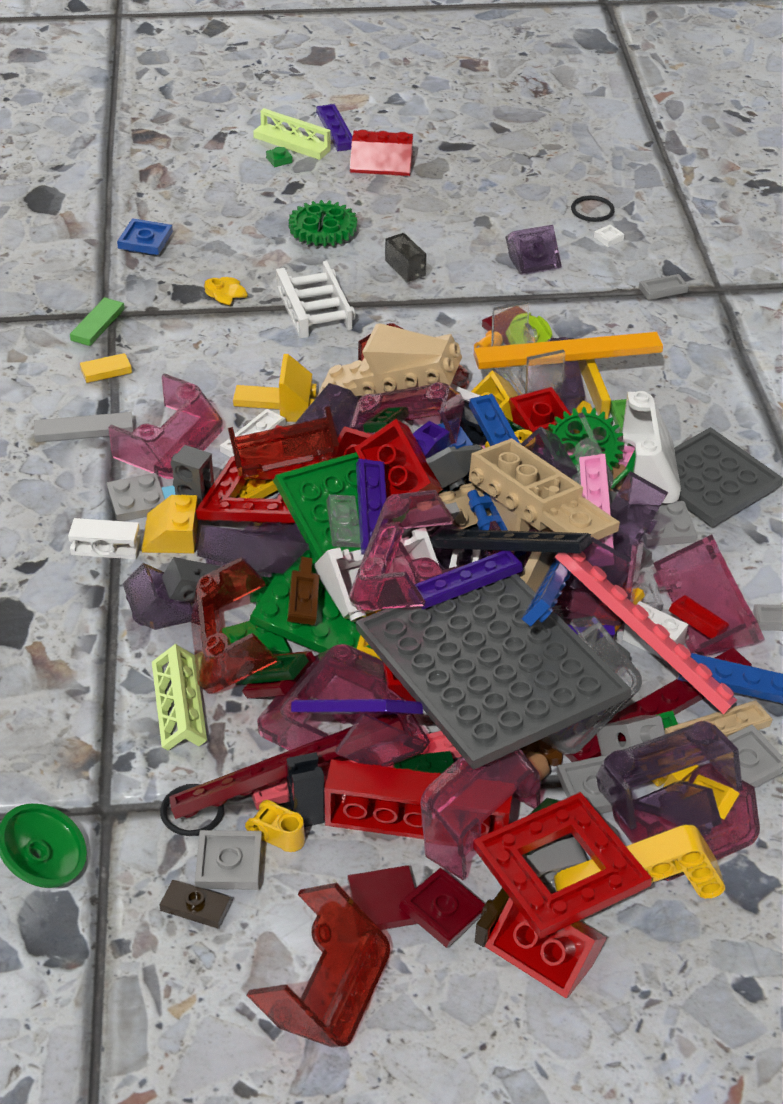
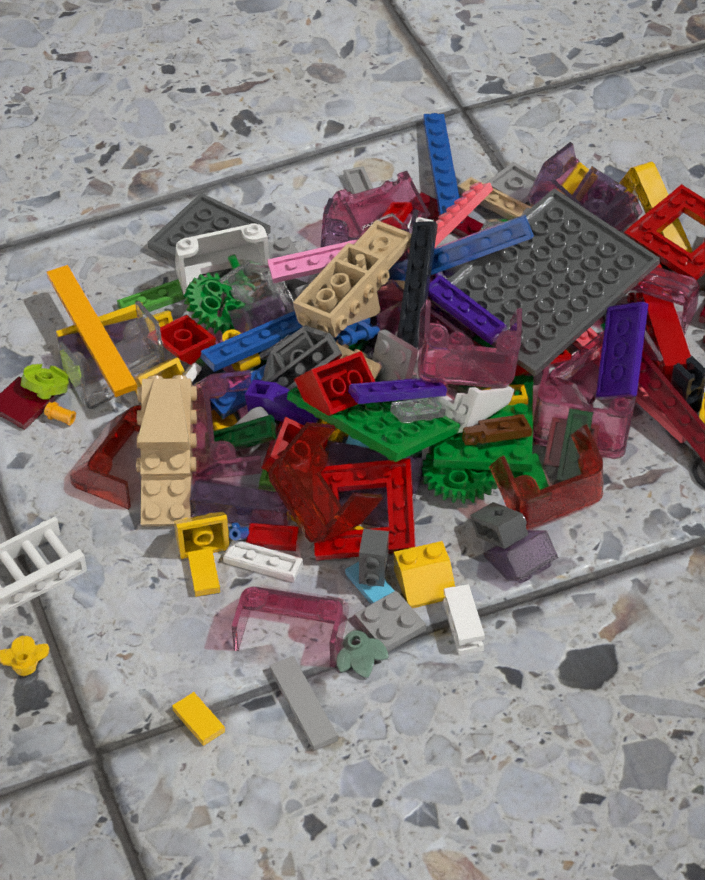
camera: 105 degrees left, 5 degrees up
(97, 321) = (116, 757): bright green tile -> none
(111, 468) = (360, 656): none -> sand green plate
(185, 694) = (617, 501): yellowish green fence -> none
(261, 551) = (451, 488): clear purple slope -> none
(282, 415) = (237, 532): none -> blue arm

